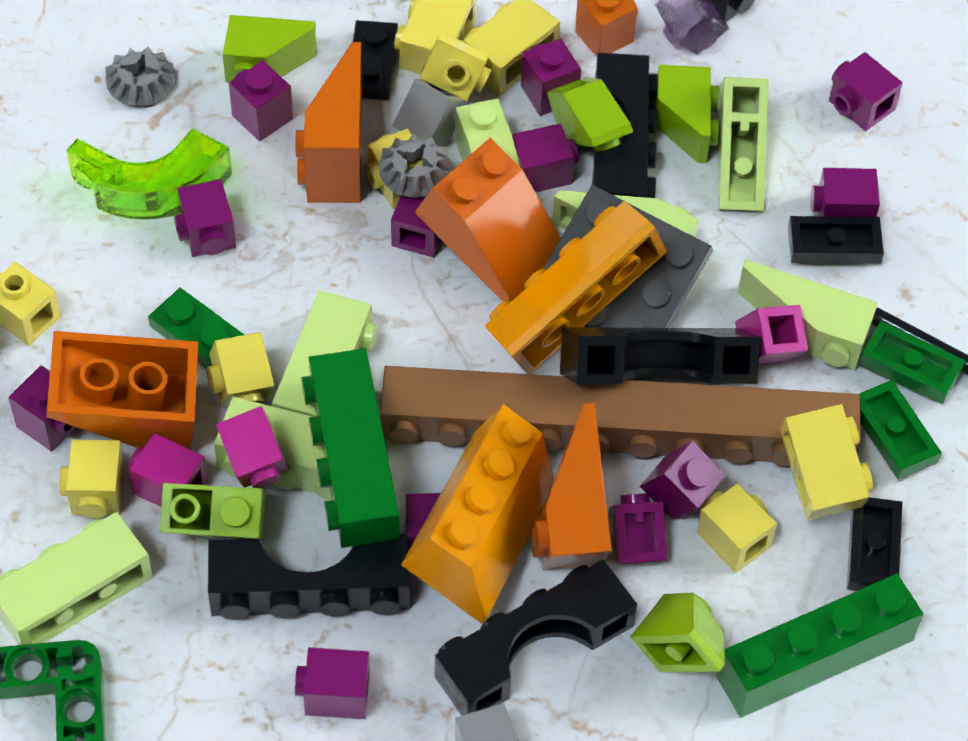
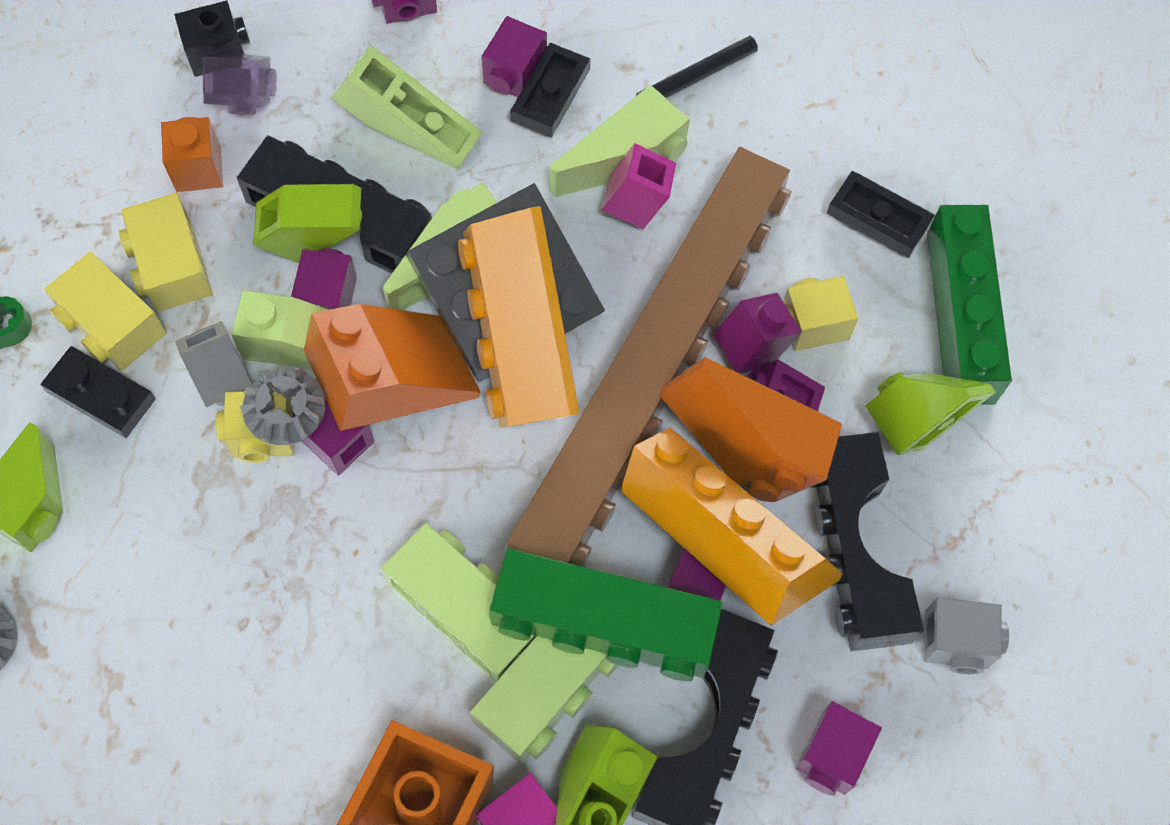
camera: 65 degrees left, 10 degrees up
(149, 187) = (138, 692): clear neon green arch -> none
(190, 320) = (345, 715): green plate -> none
(205, 218) = (213, 647): magenta brick -> none
(240, 369) = (434, 690): light yellow brick -> none
(253, 448) = (560, 716): dark pink brick -> none
(260, 100) = (89, 524): magenta brick -> none
(333, 135) = (207, 469): orange slope -> none
(455, 66) = (178, 312): light yellow brick -> none
(545, 69) = (227, 234): magenta brick -> none
(623, 354) = (603, 333): black arch -> none
(685, 108) = (338, 133): lime slope -> none
(826, 462) = (807, 205): light yellow brick -> none
(896, 430) = (778, 139): green plate -> none
(911, 362) = (713, 92): green plate -> none

